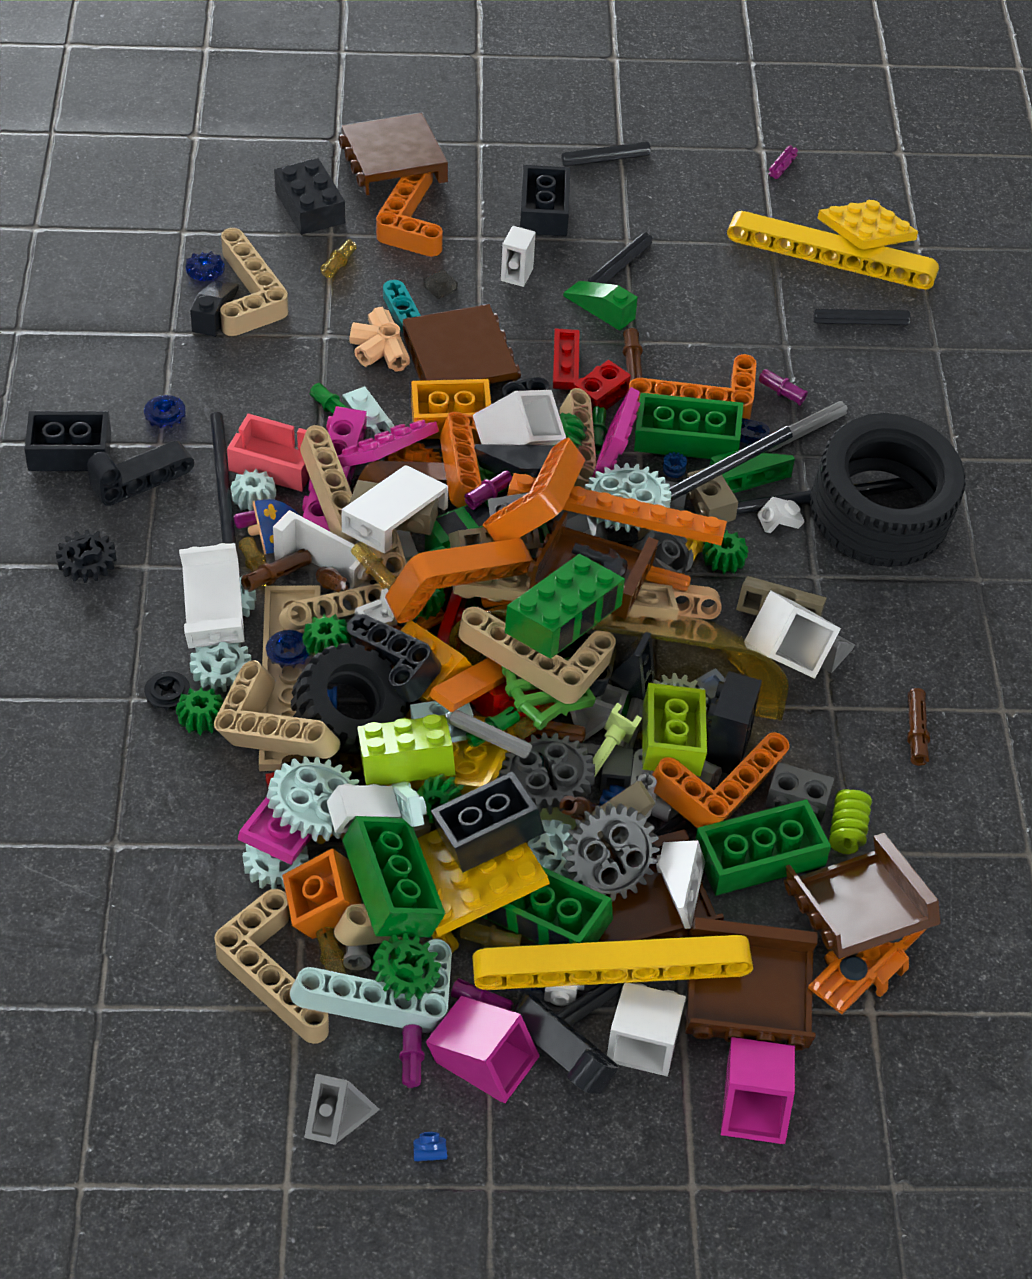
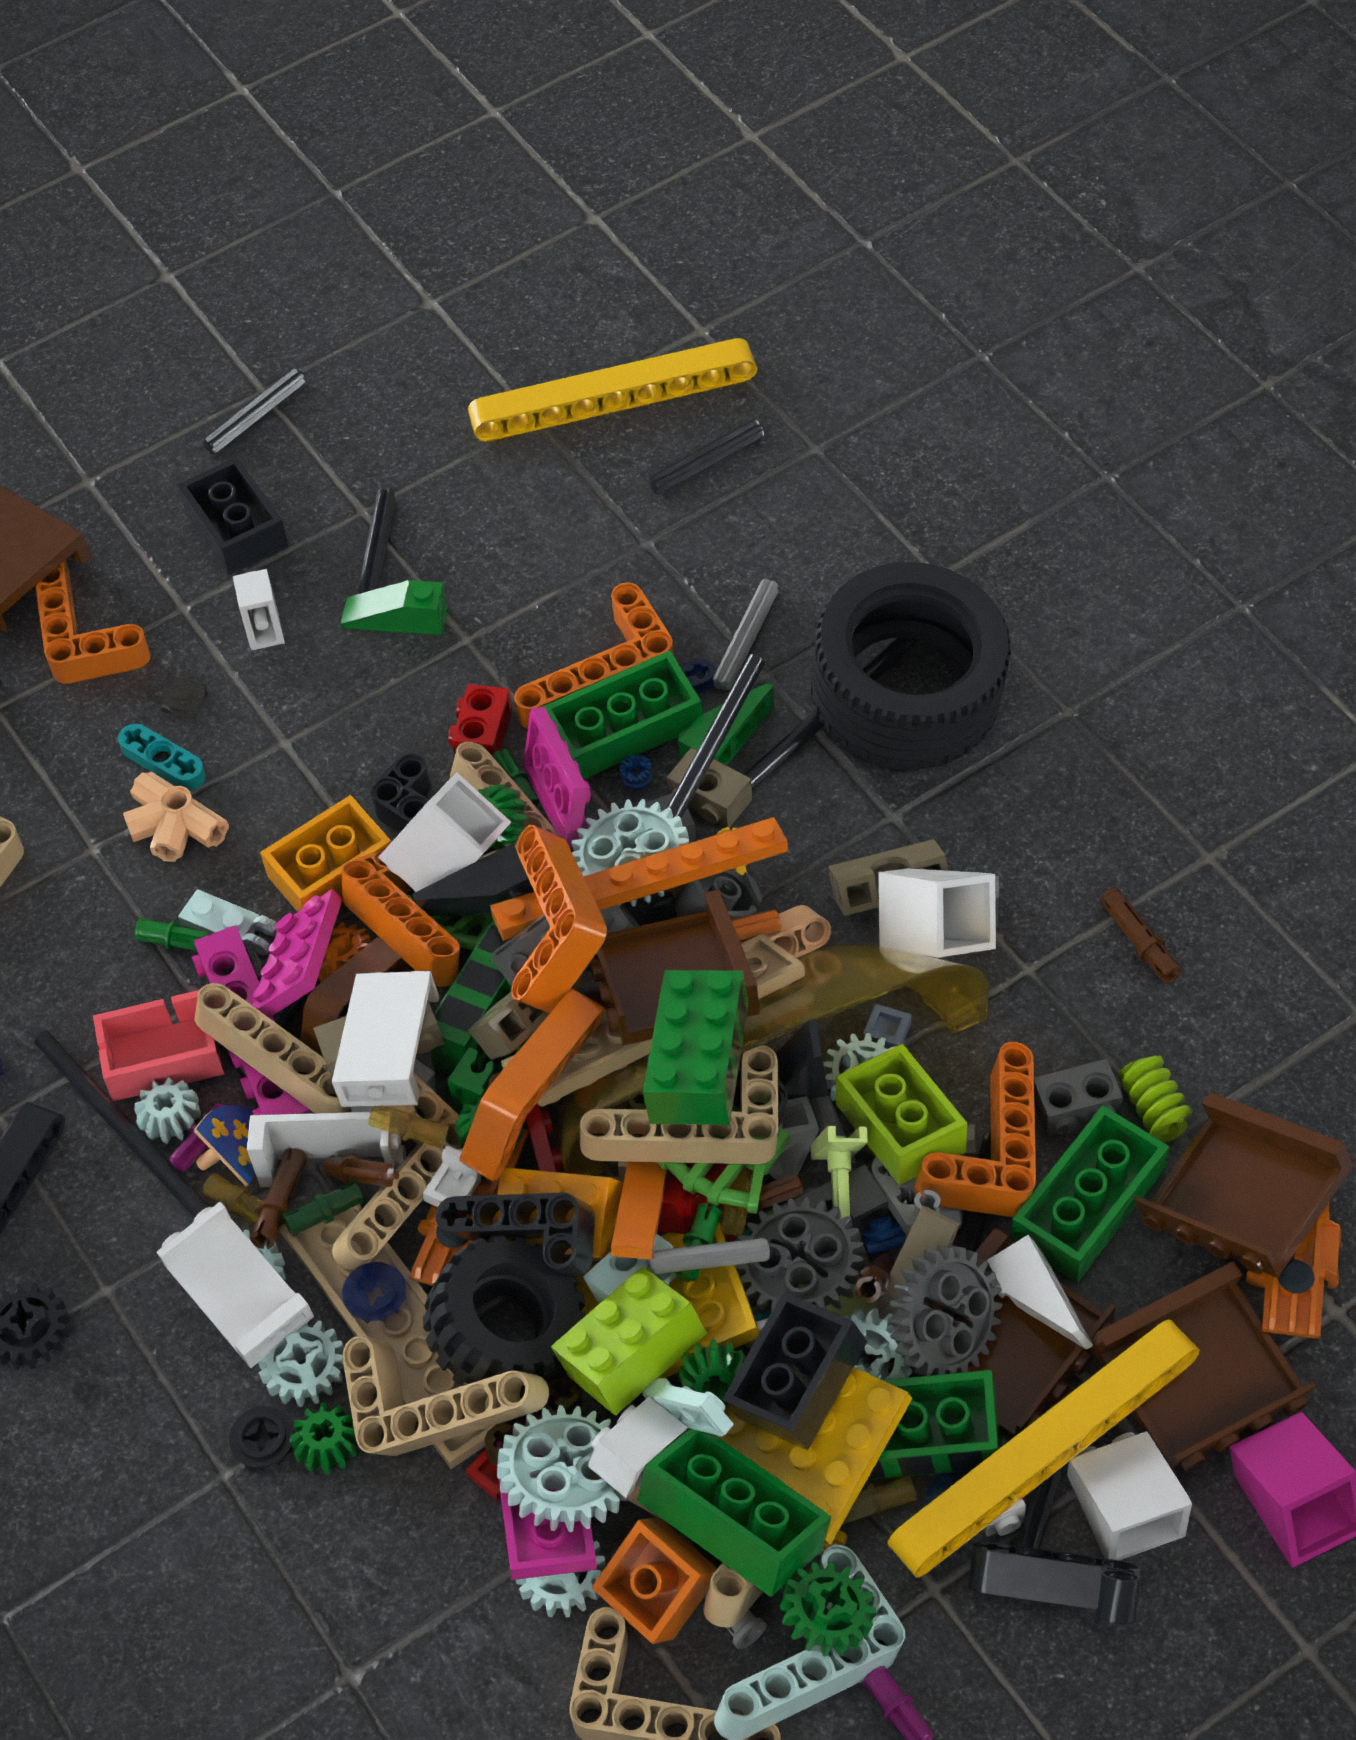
camera: 25 degrees left, 5 degrees up
(294, 587) = (323, 1208): none -> dark green pin
(325, 633) = (409, 1240): green gear -> none
(330, 955) = (717, 1648): clear yellow axle -> none
(338, 259) = (33, 737): clear yellow axle -> none
(460, 346) = (276, 772): reddish brown panel -> none
(469, 990) = (906, 1585): magenta axle -> none
(484, 1046) = (971, 1642): dark pink slope -> none
(488, 490) = (471, 943): magenta axle -> none
(565, 358) = (410, 710): red plate -> none
(610, 561) = (690, 951): black piece -> none
(632, 352) = (481, 654): reddish brown axle -> none
(728, 556) = (788, 861): green gear -> none
(731, 720) = (957, 1058): black brick -> none
(780, 512) = (800, 763): white bracket -> none
(783, 162) = (470, 305): magenta axle -> none
(783, 386) = (685, 598): magenta axle -> none
(867, 224) = (632, 335): yellow plate -> none

